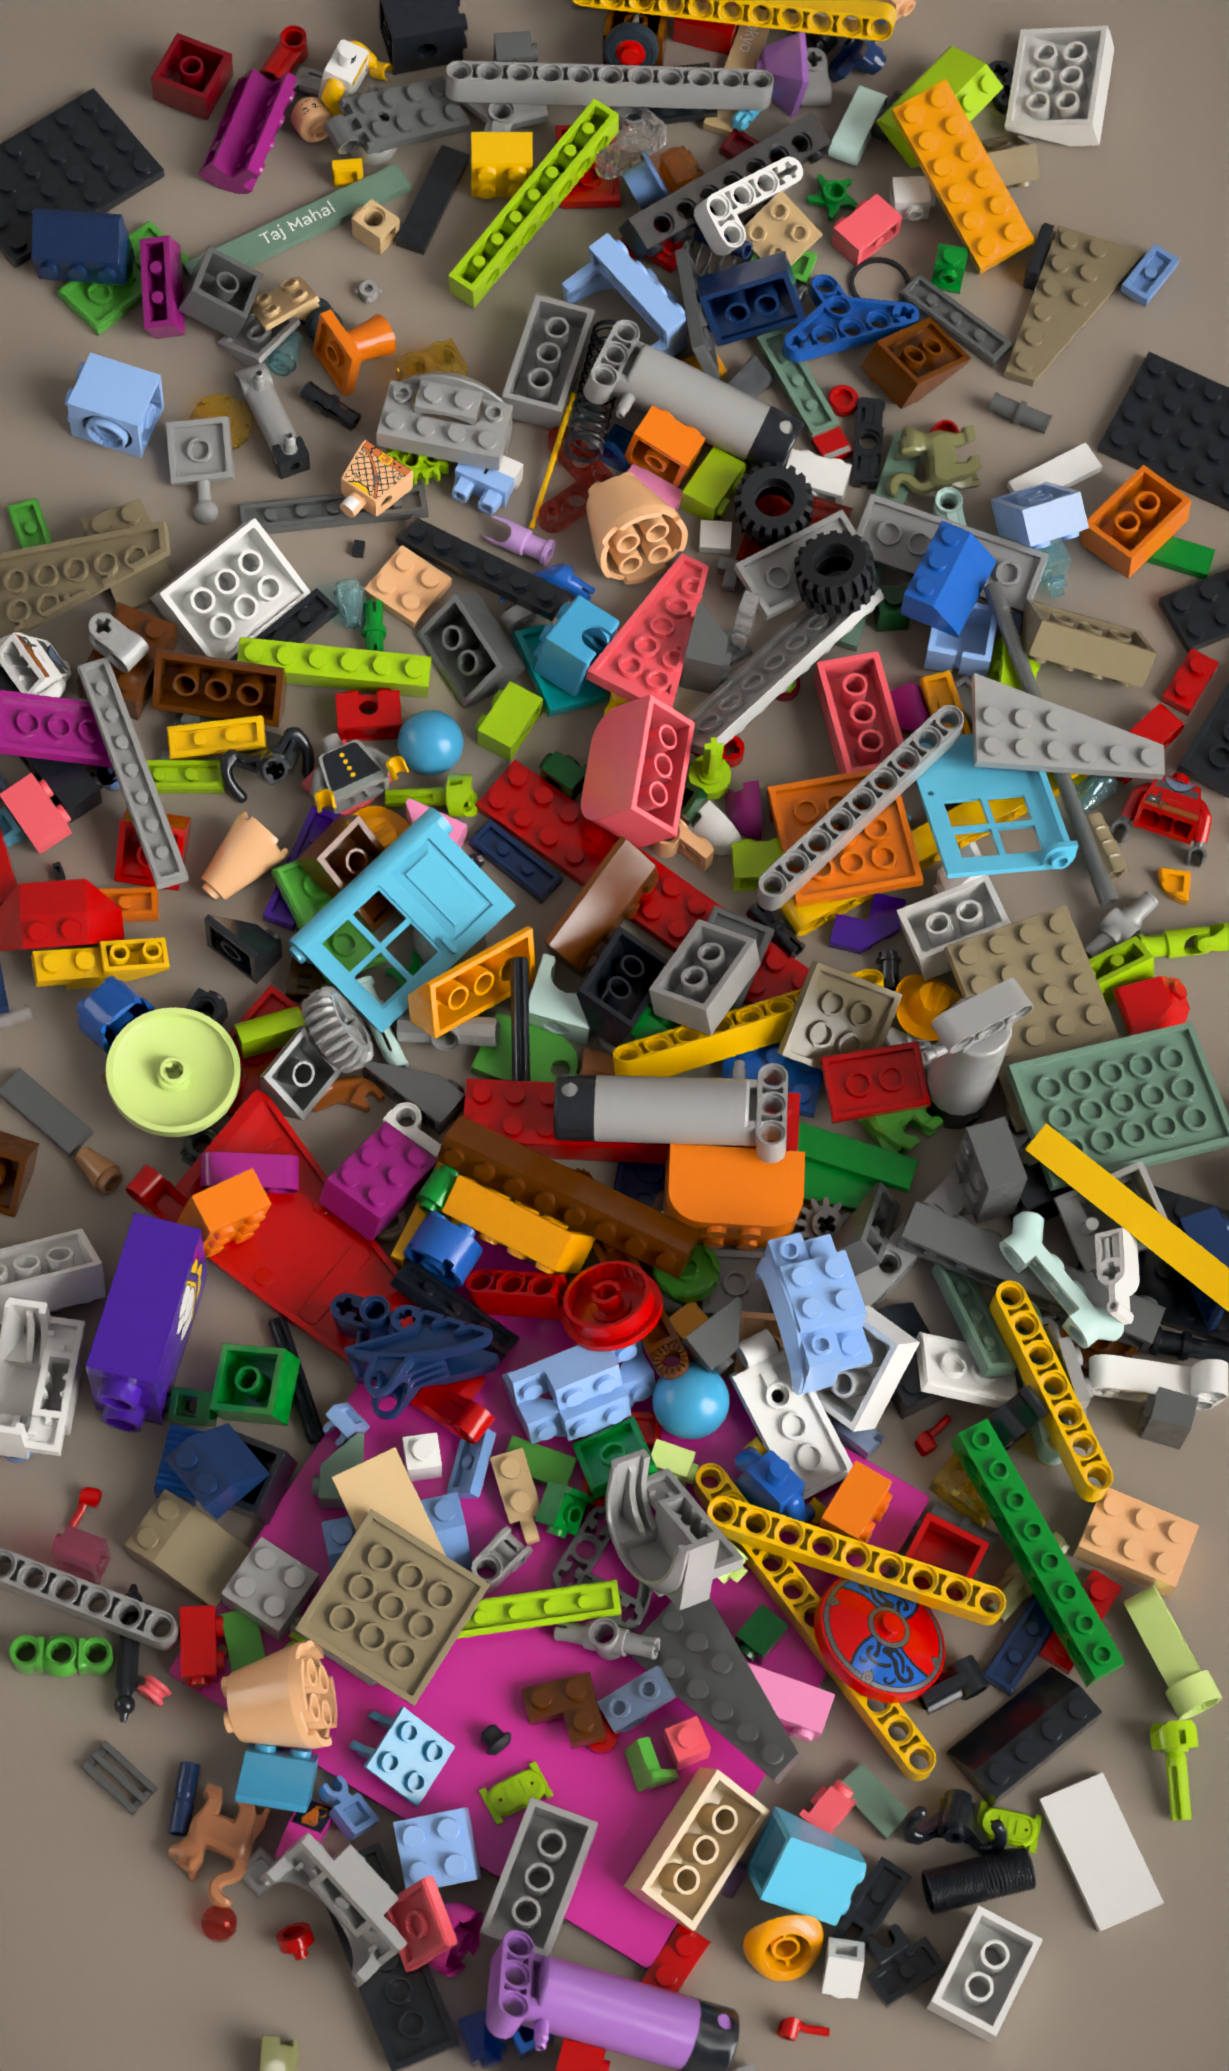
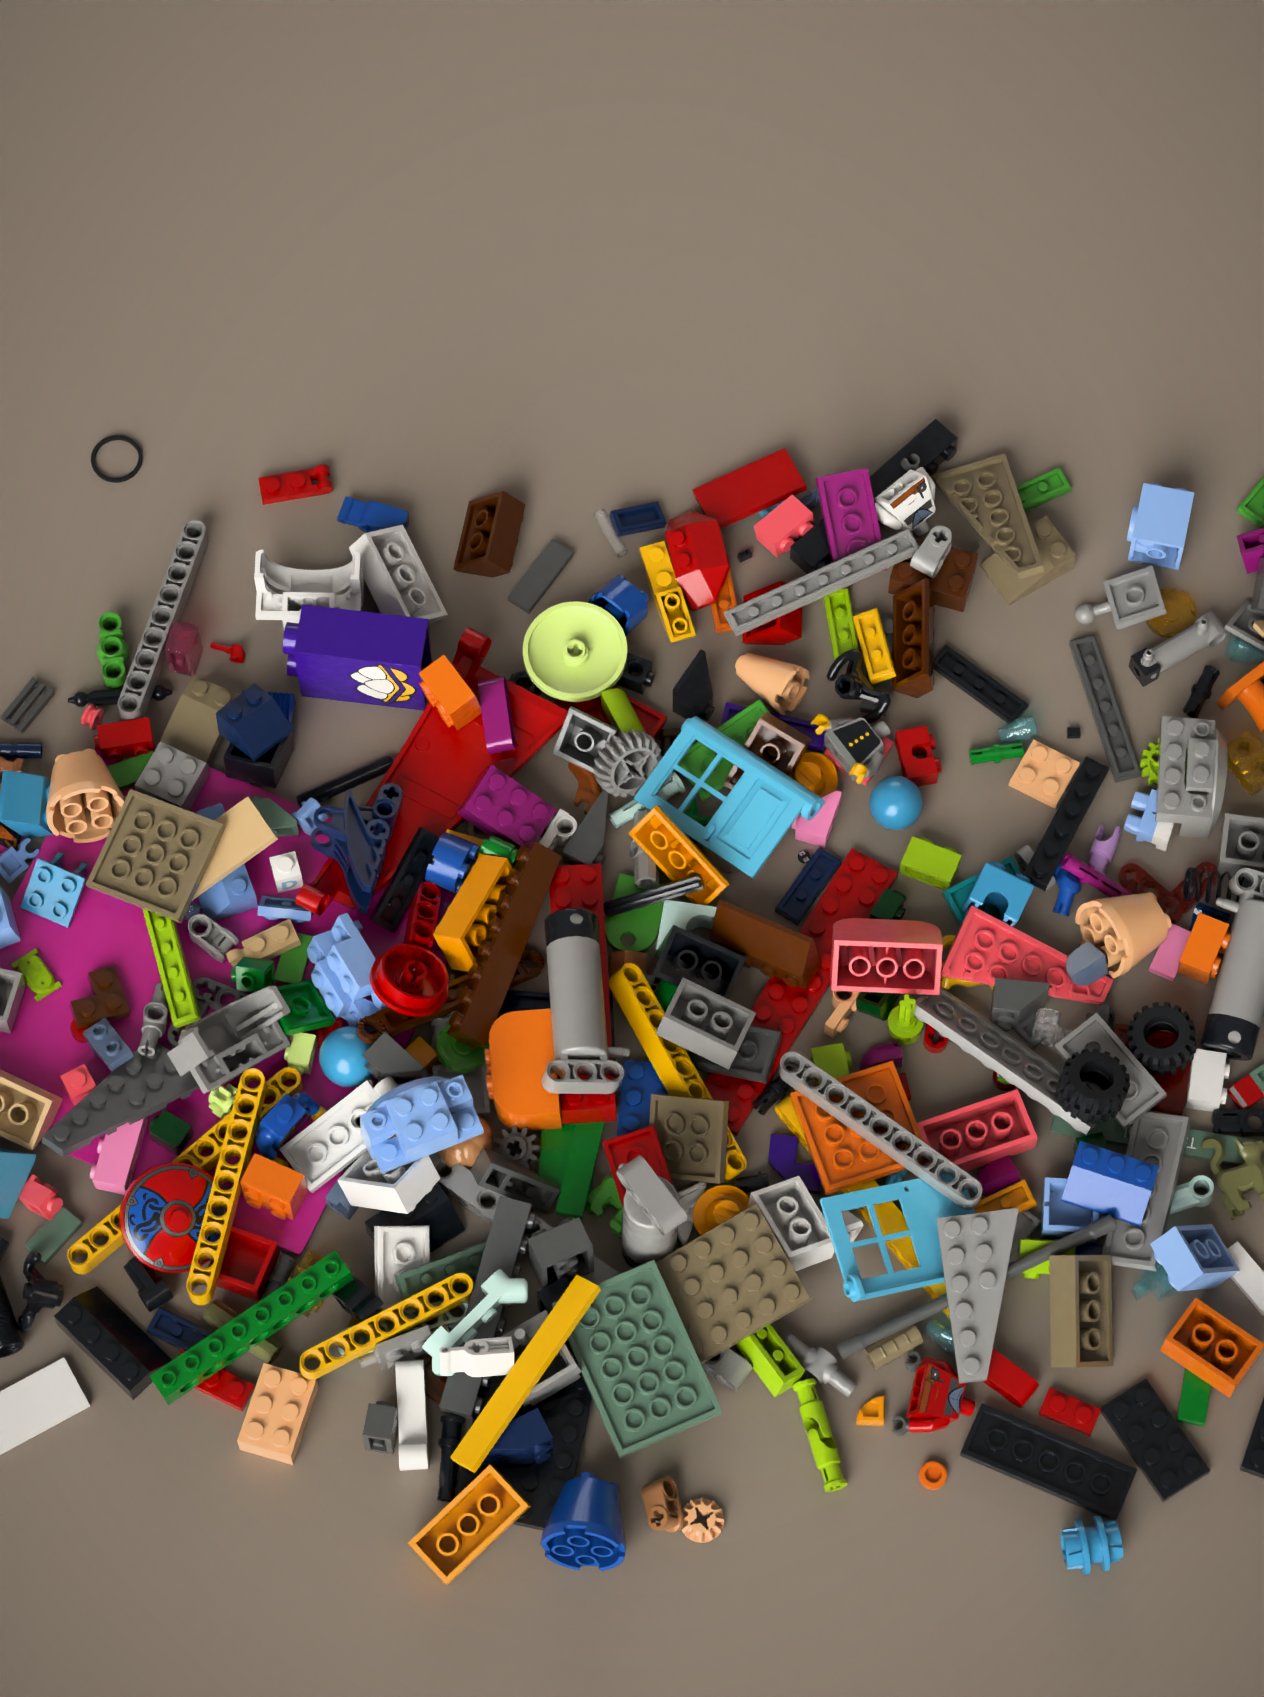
camera: 90 degrees right, 0 degrees up
(100, 1171) = (495, 620): medium nougat cone -> none
(178, 1407) = (312, 711): dark green brick -> none
(231, 592) = (1008, 640): white slope -> none
(255, 1384) = (331, 747): green brick -> none
(341, 666) = (952, 723): lime brick -> none
(373, 481) = (1128, 728): light nougat torso -> none
(454, 795) = (853, 824): lime piece -> none
(470, 649) = (992, 827): dark grey slope -> none
(495, 1739) = (73, 953): black piece -> none
(546, 560) = (1087, 874): none -> magenta pin
(552, 460) = (1176, 867): yellow piece -> none
(646, 1767) = (58, 1060): bright green tile -> none
(666, 569) = (1086, 964): none -> sand blue brick
(713, 485) = (1186, 993): lime brick -> none
(715, 537) = (1134, 1003): white tile -> none
(716, 829) = (858, 1032): white brick -> none
(925, 1443) = (347, 1247): red hand -> none
(1015, 1823) = (42, 1338): lime piece -> none
(1152, 1004) = (740, 1392): red slope -> none
(1174, 1740) = (100, 1457): lime piece -> none
(1189, 1687) = (188, 1446): yellowish green beam -> none

